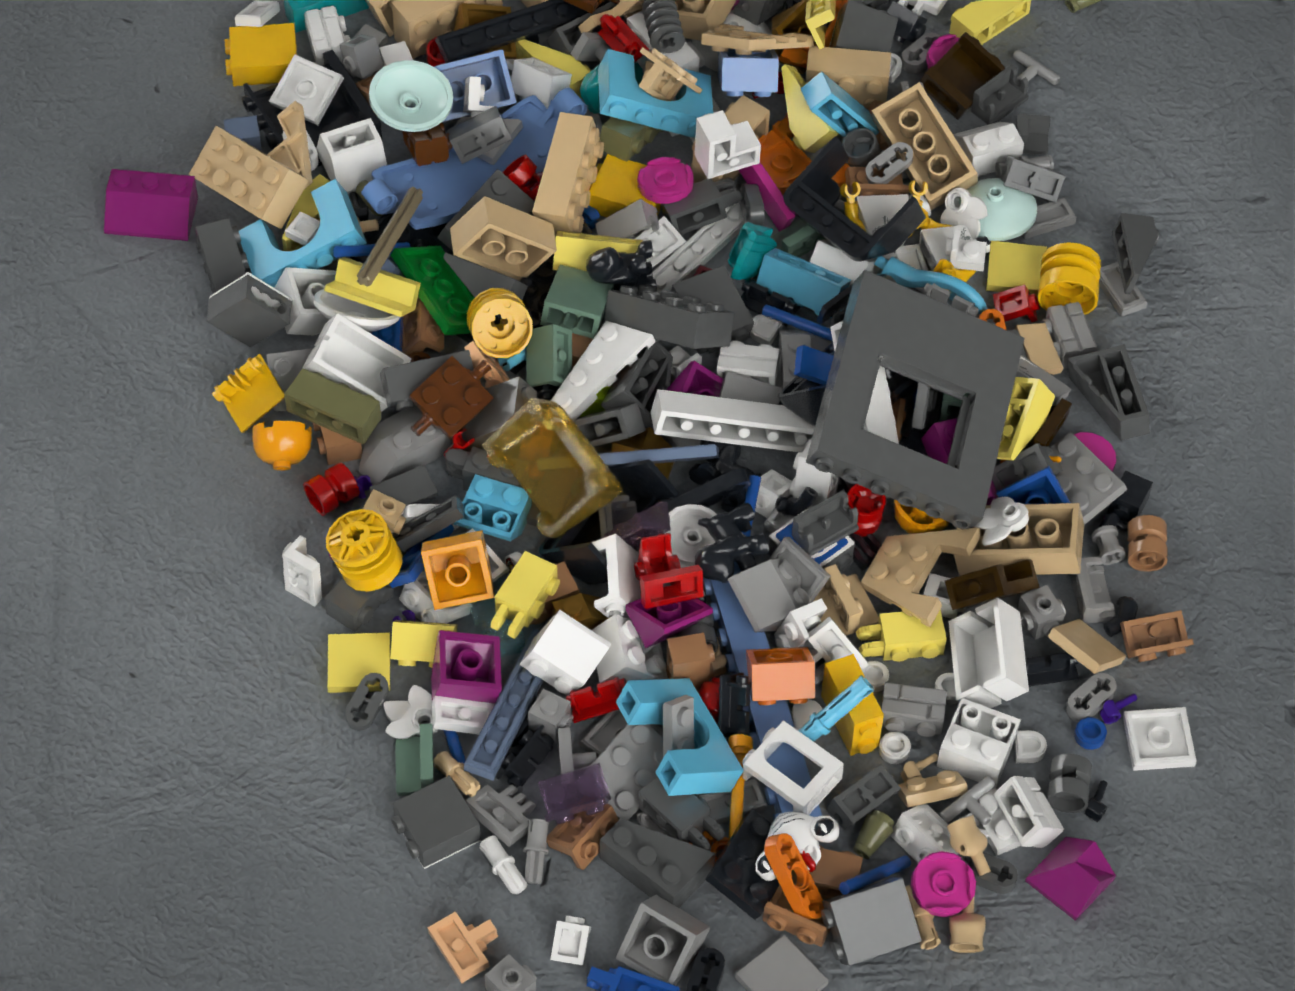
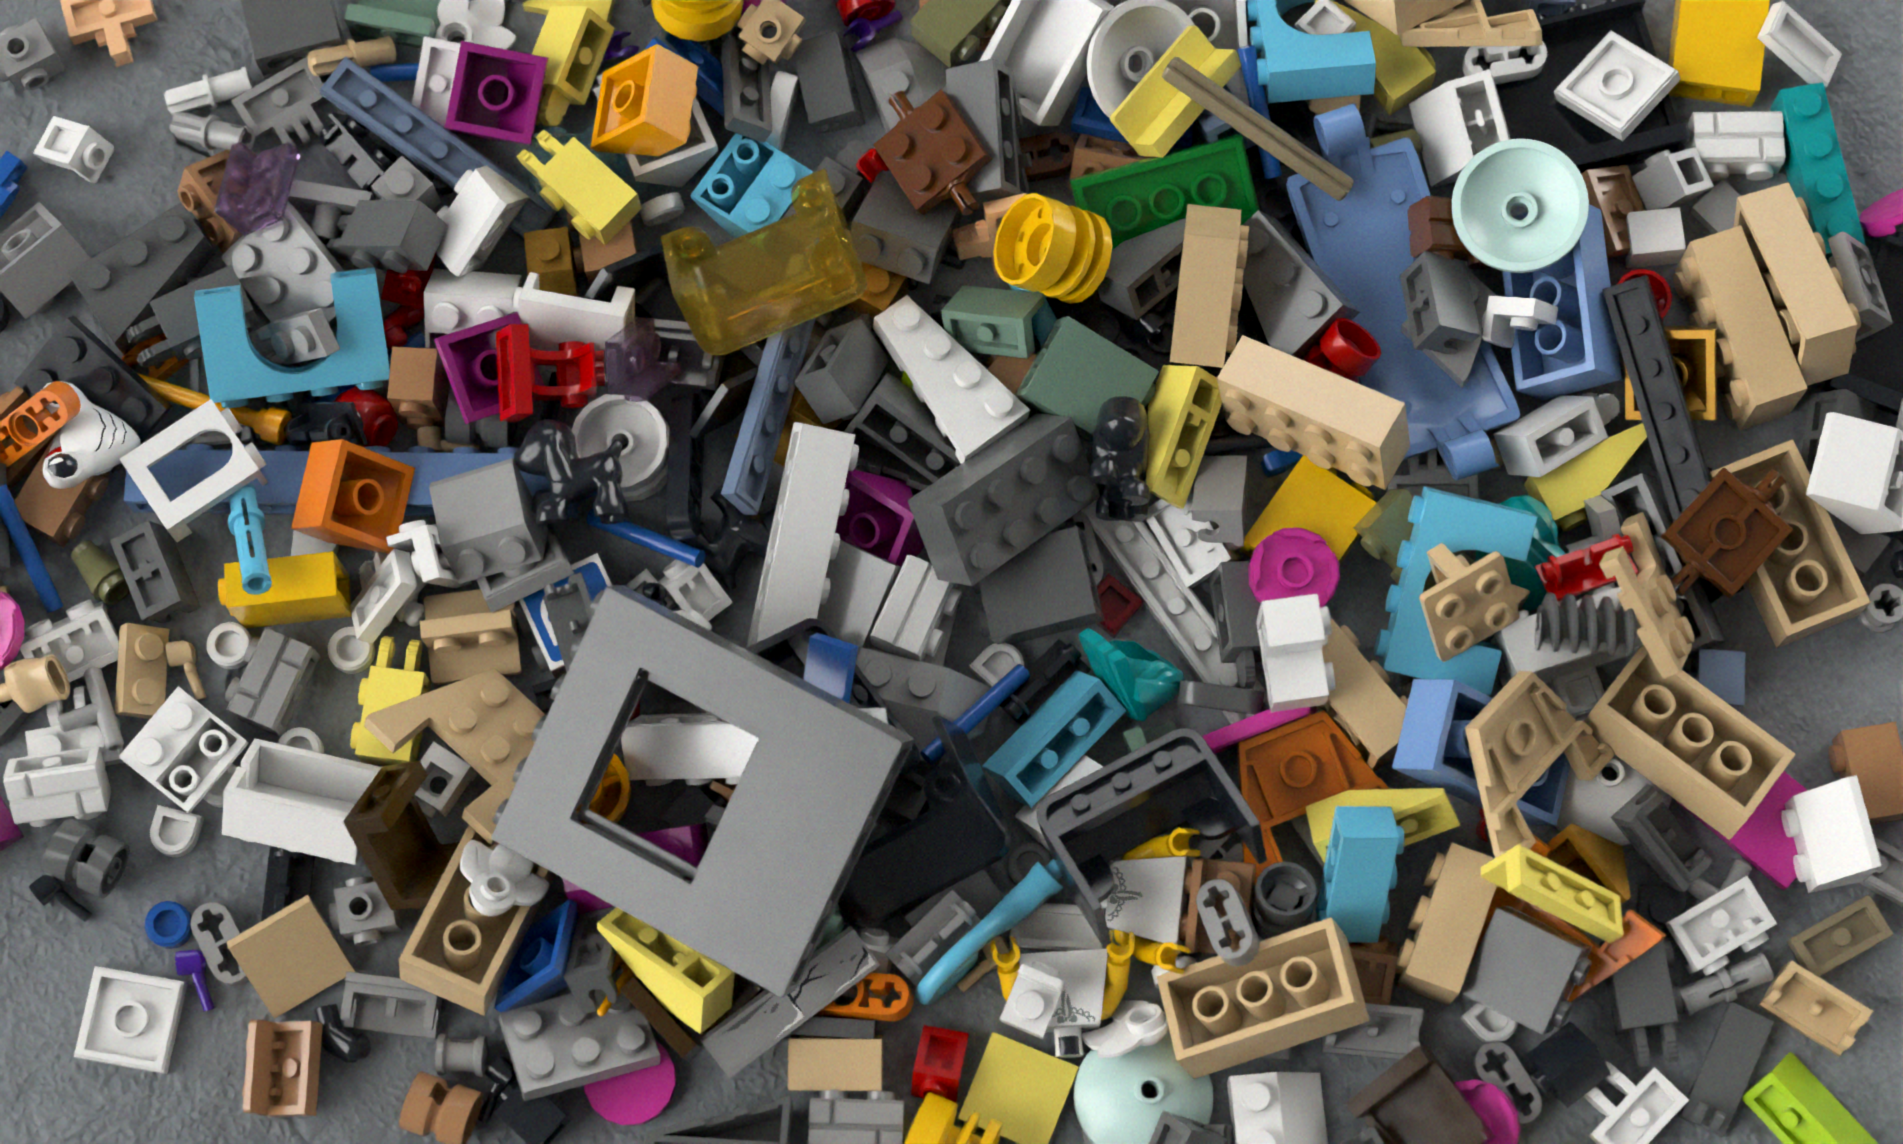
camera: 110 degrees right, 20 degrees up
(591, 701) = (389, 235): none -> dark grey hinge

